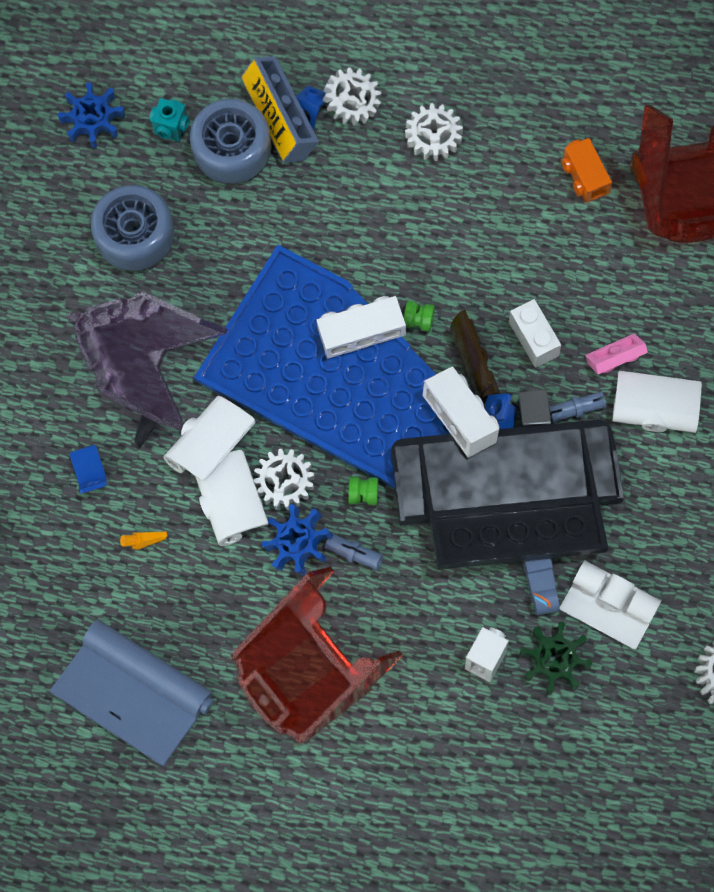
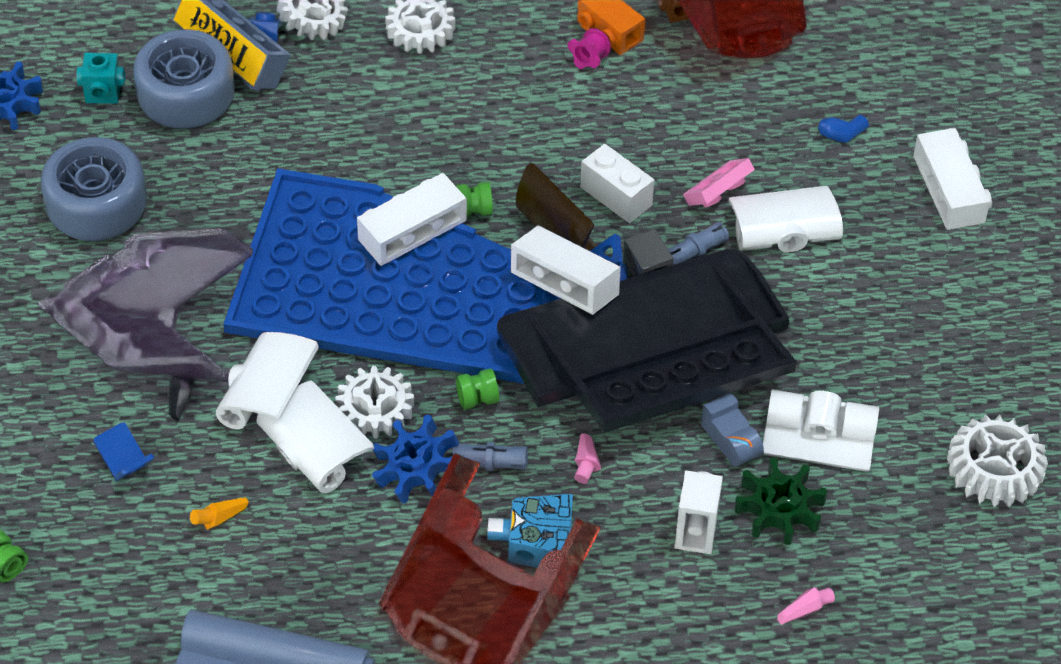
camera: 25 degrees left, 20 degrees down
(365, 627) = (535, 527): none -> dark azure torso
(425, 573) = (586, 459): none -> bright pink bar
(543, 749) = (805, 604): none -> bright pink bar
(560, 195) = (590, 49): none -> dark pink brick

